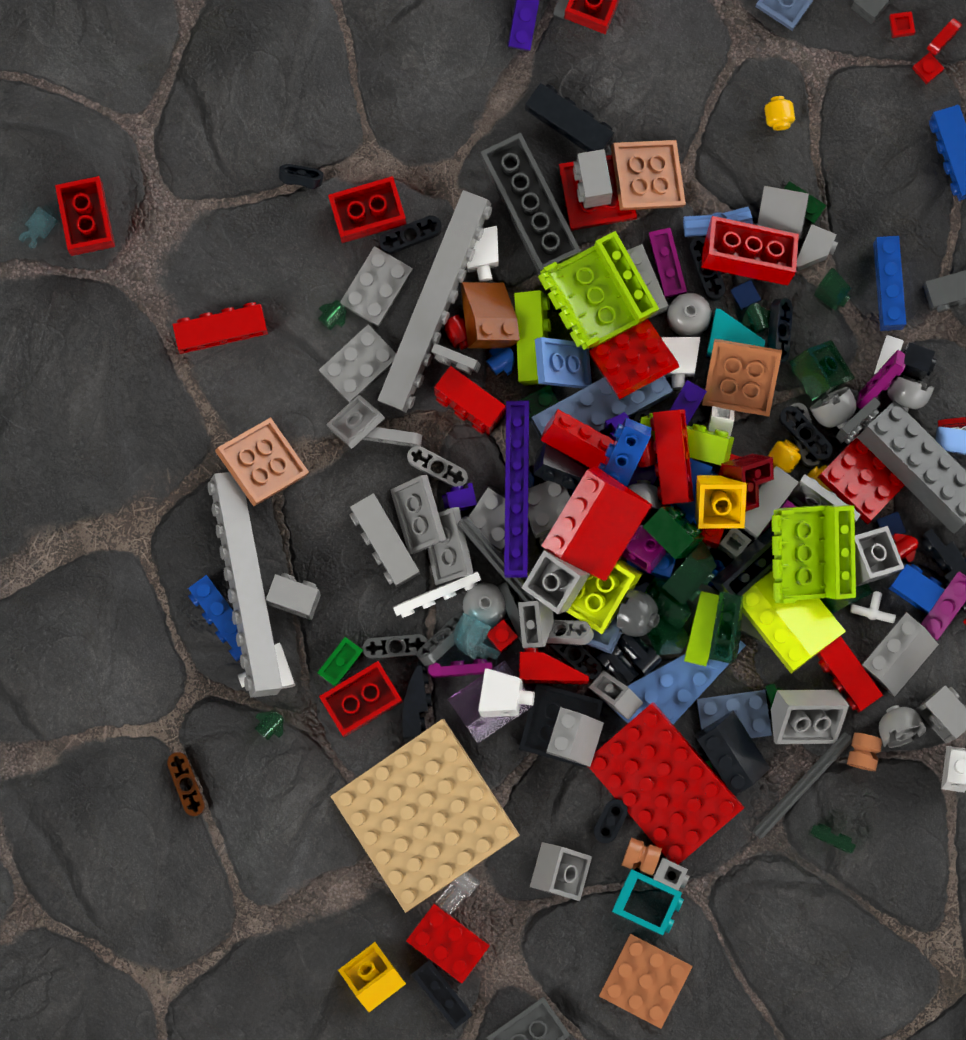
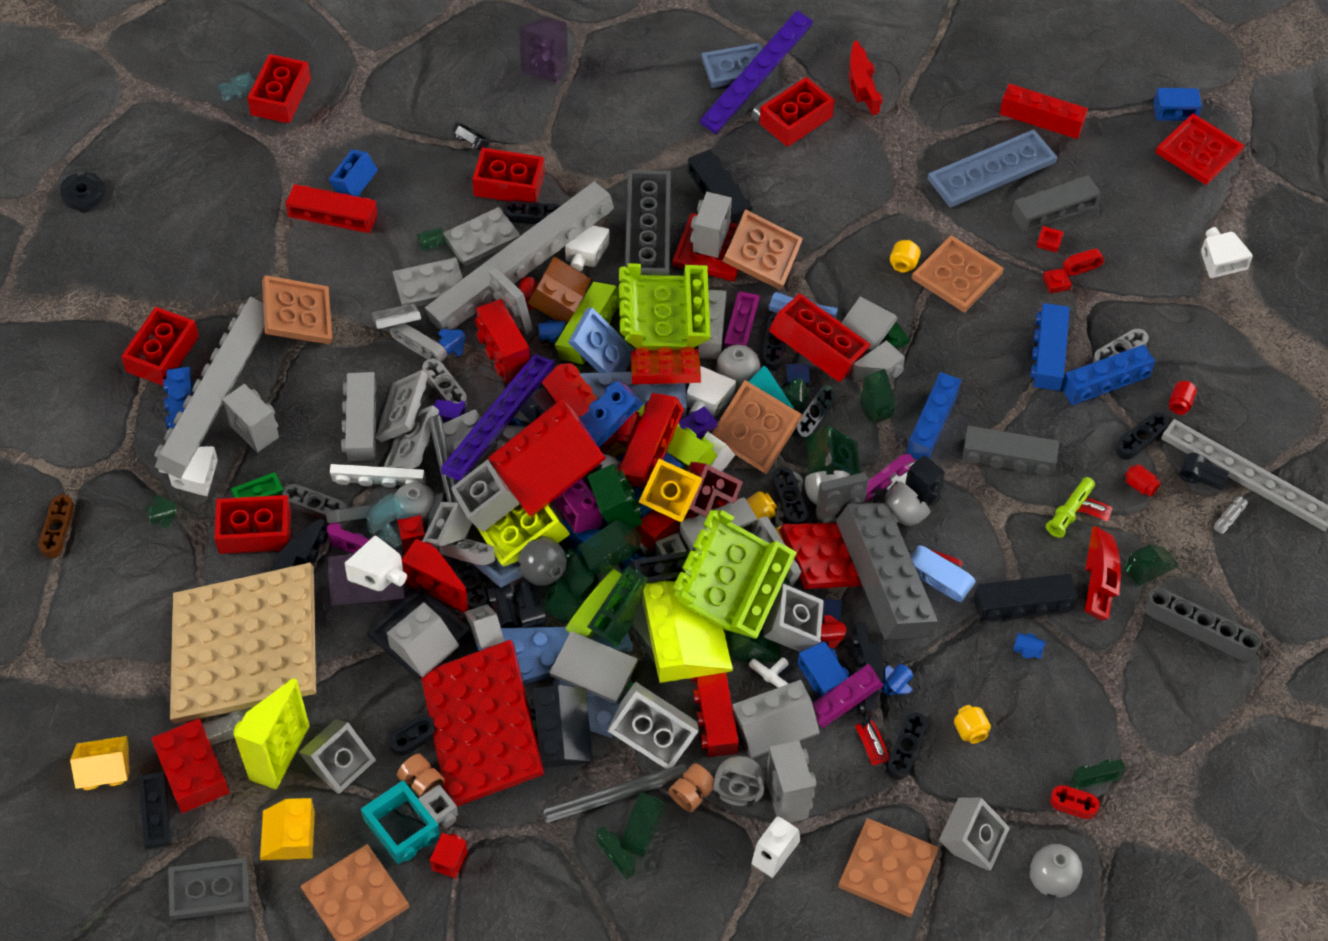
camera: 25 degrees right, 25 degrees down
(162, 563) = (160, 345): none -> red brick
(219, 282) = (353, 173): none -> blue brick
(320, 44) = (544, 49): none -> clear purple slope
(418, 420) = (452, 341): none -> blue piece
(510, 902) = (272, 734): none -> neon yellow slope
(559, 957) = (288, 830): none -> yellow slope
(701, 909) = (449, 855): none -> red brick
(728, 686) = (593, 667): none -> light grey tile
(836, 108) = (957, 273): none -> nougat plate
(841, 804) = (642, 824): none -> clear green slope

